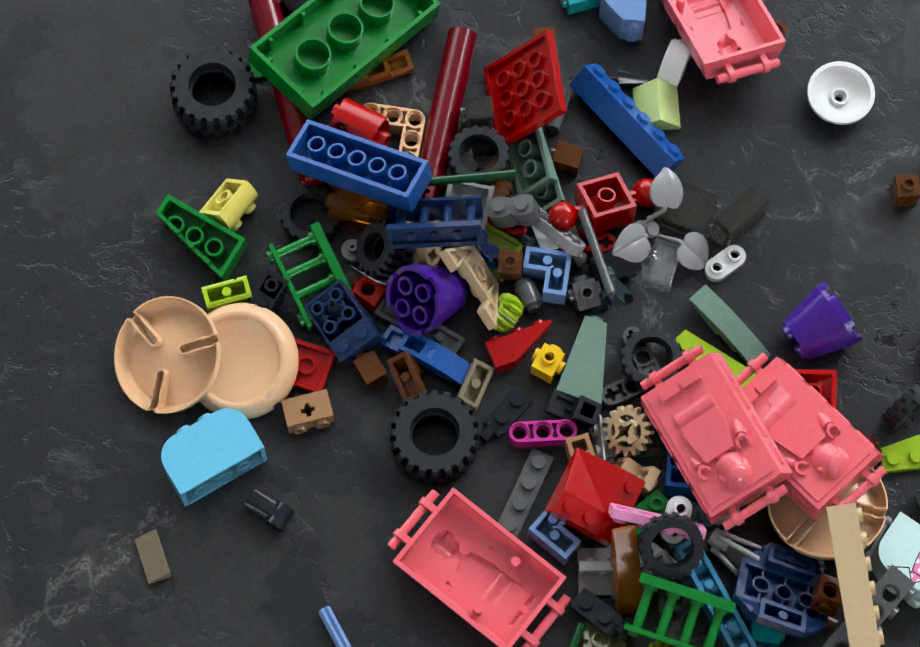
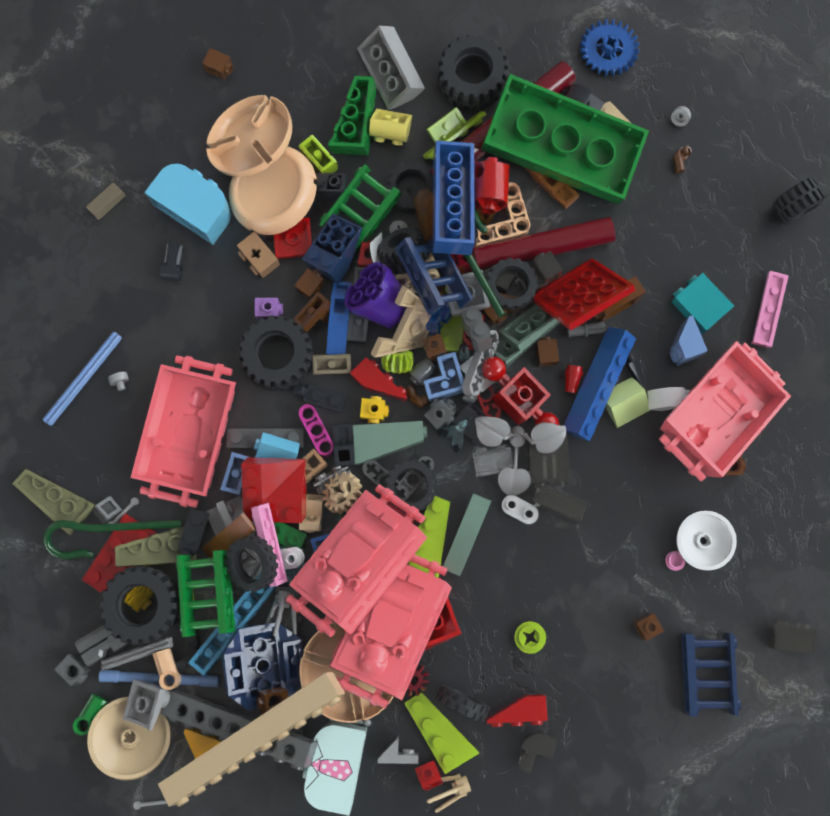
camera: 70 degrees right, 10 degrees up
(54, 359) = (217, 64): none -> reddish brown brick
(155, 173) = (390, 67): none -> light grey slope
(265, 146) = (450, 127): none -> lime bracket
(376, 427) = (267, 306): none -> medium lavender brick
(380, 628) = (118, 379): none -> light grey tile
(543, 482) = (275, 447): none -> medium azure brick
(556, 314) = (414, 398): none -> reddish brown arm
(596, 251) = (473, 406): dark grey bar -> none
(607, 146) = (572, 378): none -> red cone
(820, 325) = (497, 605): dark purple cone -> none
(847, 135) = (674, 561): none -> bright pink plate
(868, 303) = (539, 635): none -> lime gear

